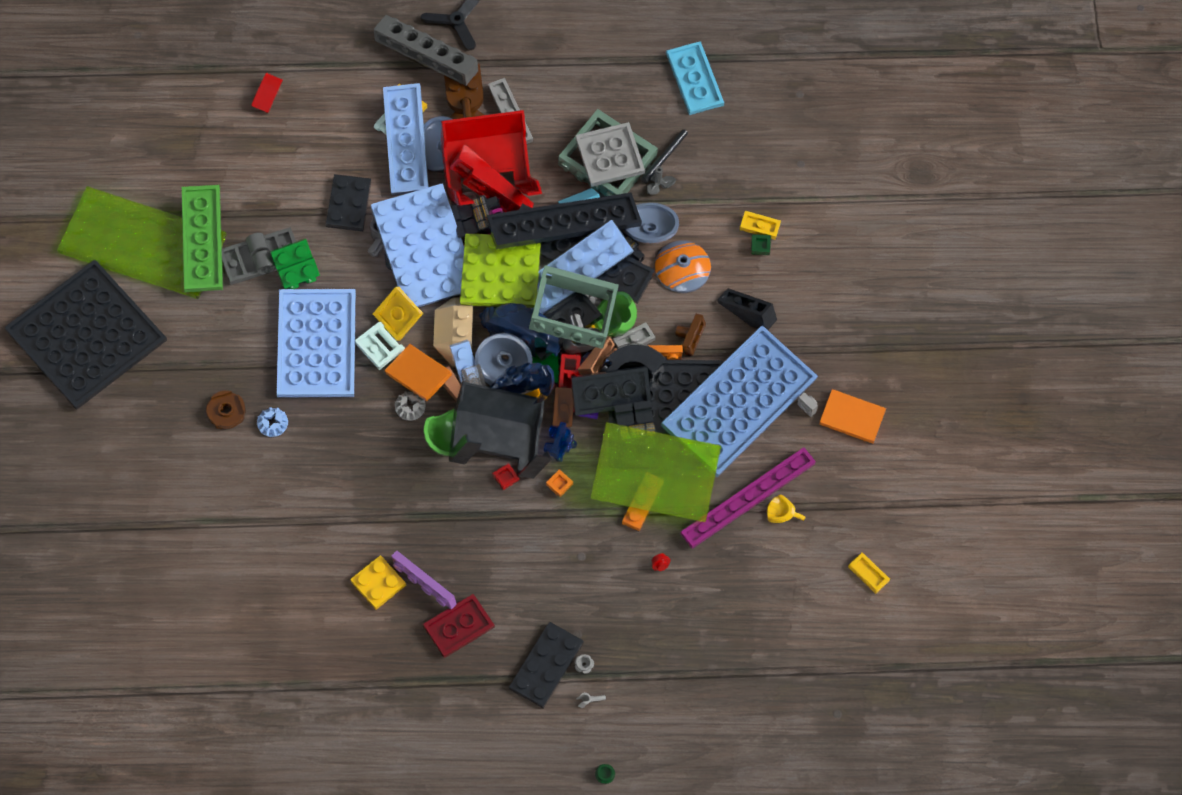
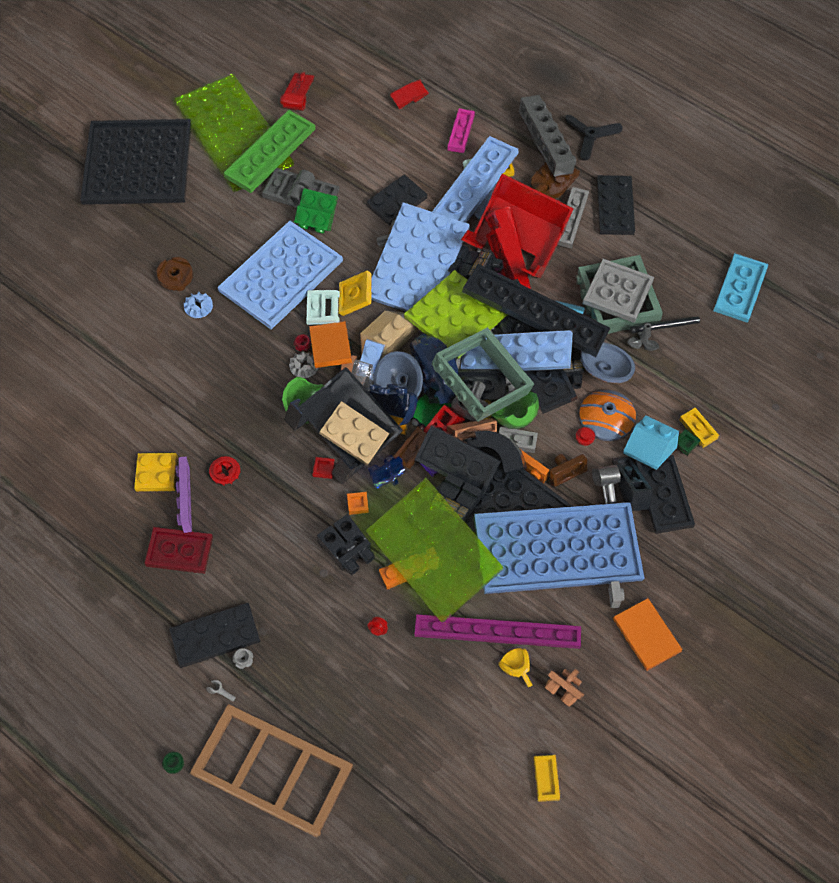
camera: 45 degrees right, 5 degrees down
(164, 161) = (295, 94): none -> red door
(345, 96) = (461, 130): none -> dark pink plate
(392, 384) = (302, 338): none -> dark red plate
(428, 531) = (228, 463): none -> red gear
(511, 430) = (354, 433): none -> tan plate
(534, 74) = (615, 205): none -> black plate
(580, 521) = (346, 544): none -> black hips
(682, 297) = (585, 436): none -> red plate
(691, 688) = (265, 730): none -> medium nougat door
(727, 318) = (607, 477): none -> flat silver beam
(738, 265) = (651, 442): none -> medium azure slope
(790, 305) = (668, 502): none -> black plate
(819, 501) = (572, 693): none -> nougat hips

